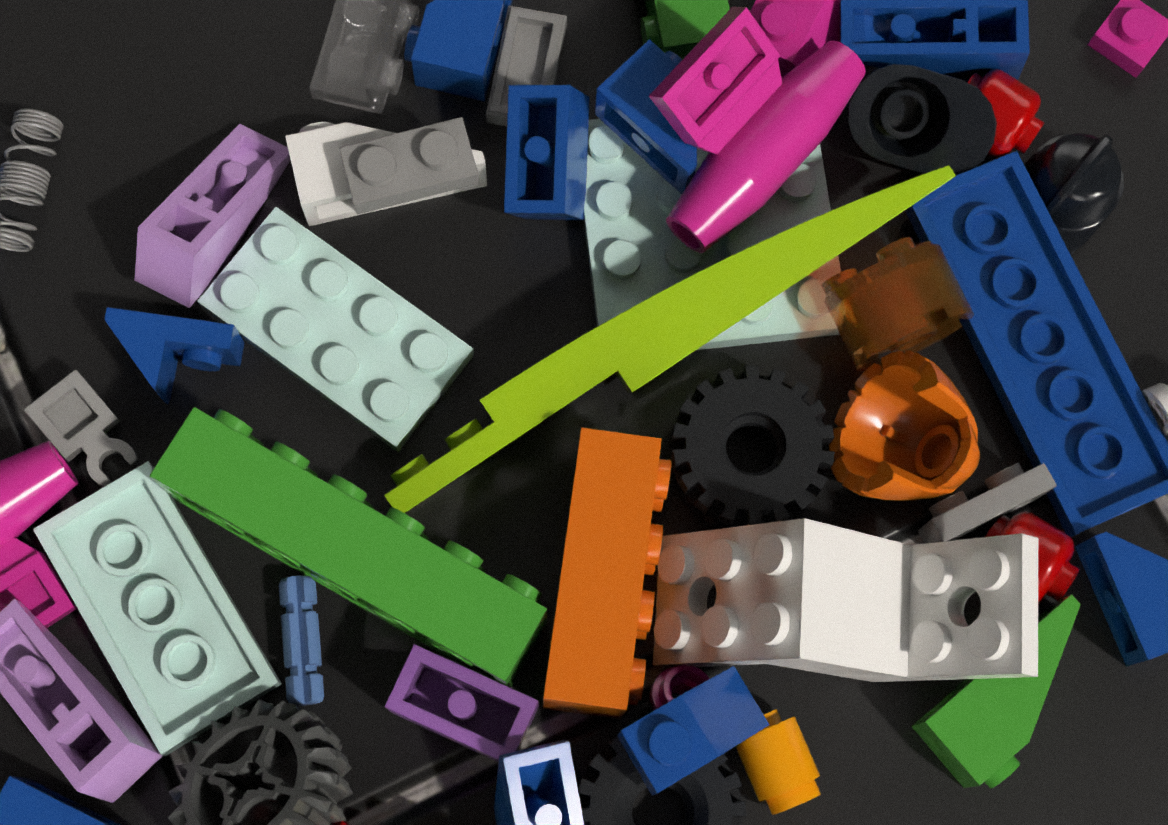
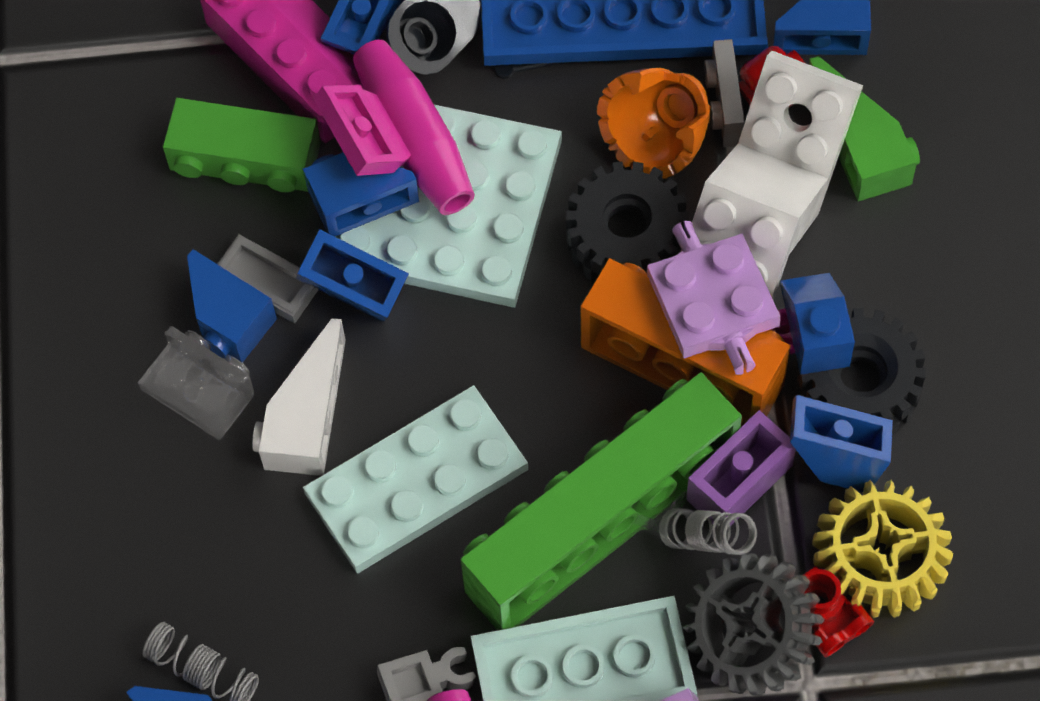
camera: 60 degrees left, 10 degrees down
(159, 341) = (378, 604): blue slope -> none
(207, 215) = (292, 534): lavender slope -> none
(301, 640) = (646, 576): medium blue axle -> none
(362, 674) = (693, 531): none -> light grey piece
(409, 165) = (324, 368): light grey plate -> none
(650, 587) = (713, 296): none -> lavender plate
(658, 332) = (522, 250): lime slope -> none
(780, 764) = (861, 284): light orange brick -> none
(896, 303) = (564, 89): clear orange brick -> none

